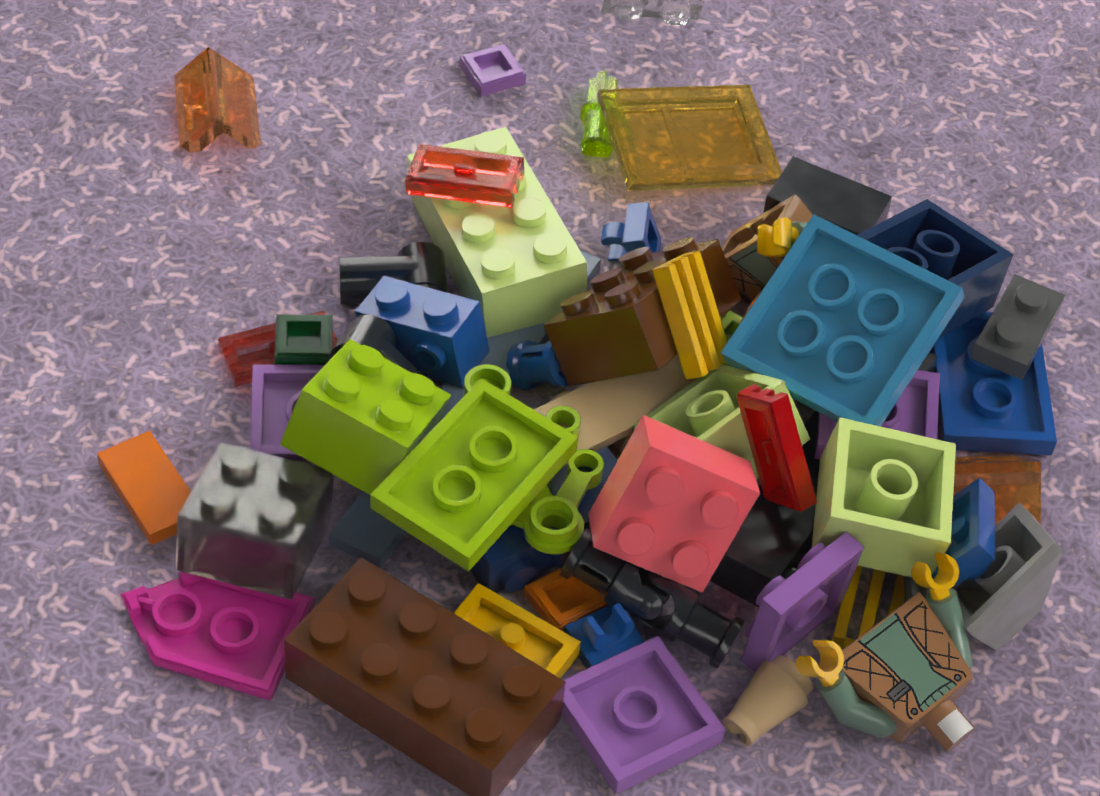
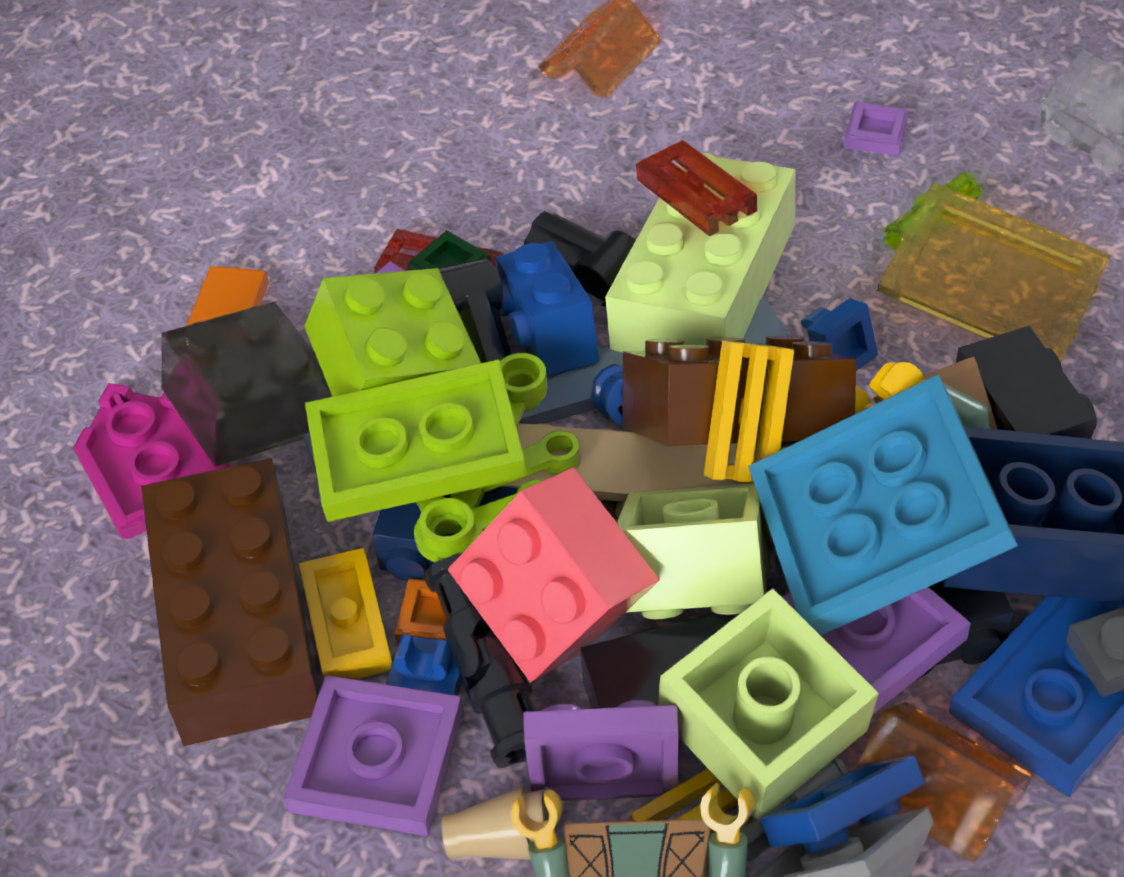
camera: 50 degrees right, 0 degrees up
(776, 447) = (691, 579): red tile -> none

